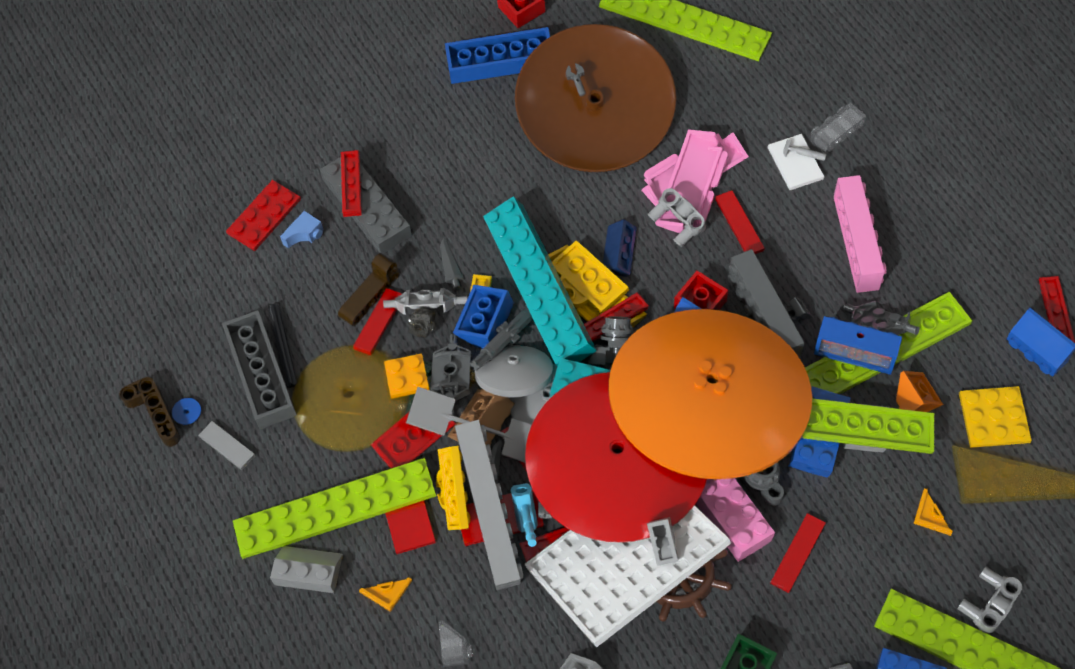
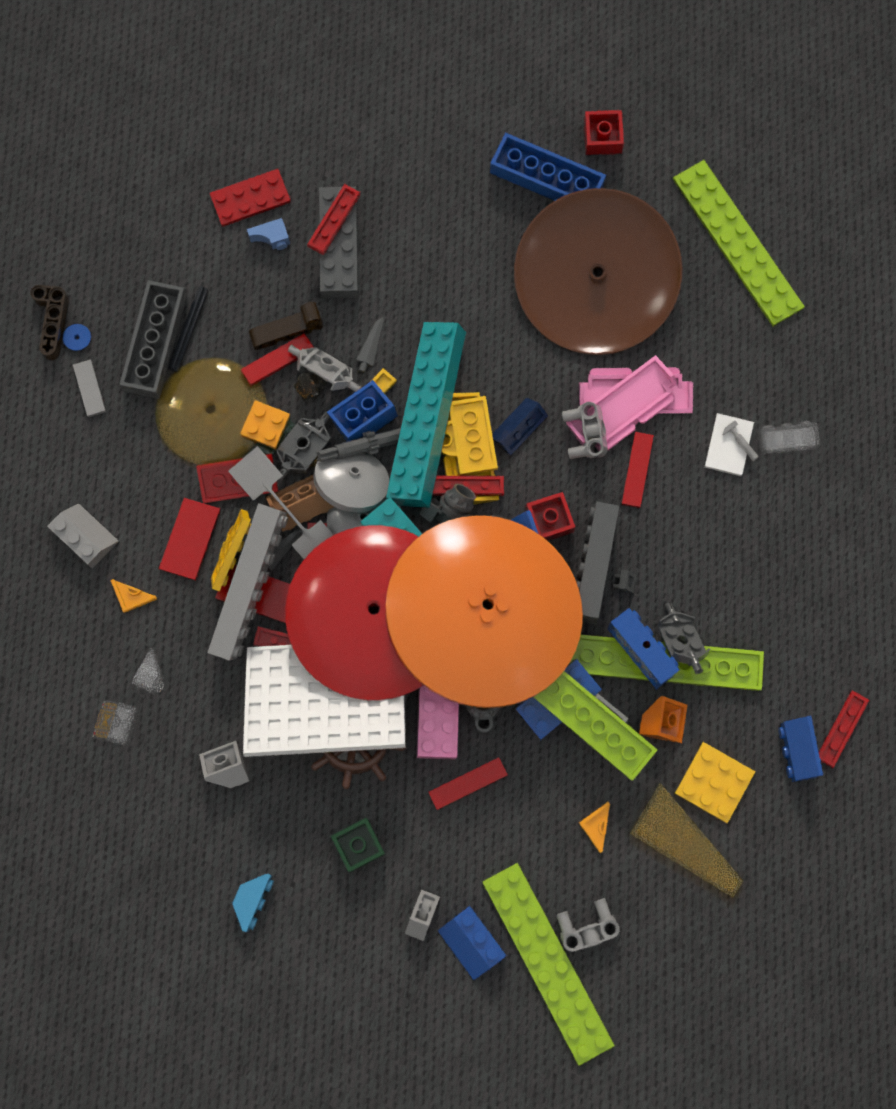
camera: 30 degrees right, 15 degrees up
(334, 508) = (136, 499): lime plate -> none
(525, 511) = (274, 609): medium azure piece -> none
(576, 78) = (592, 244): dark grey bar -> none
(663, 541) = (354, 706): light grey arch -> none
(859, 234) = (725, 550): bright pink brick -> none

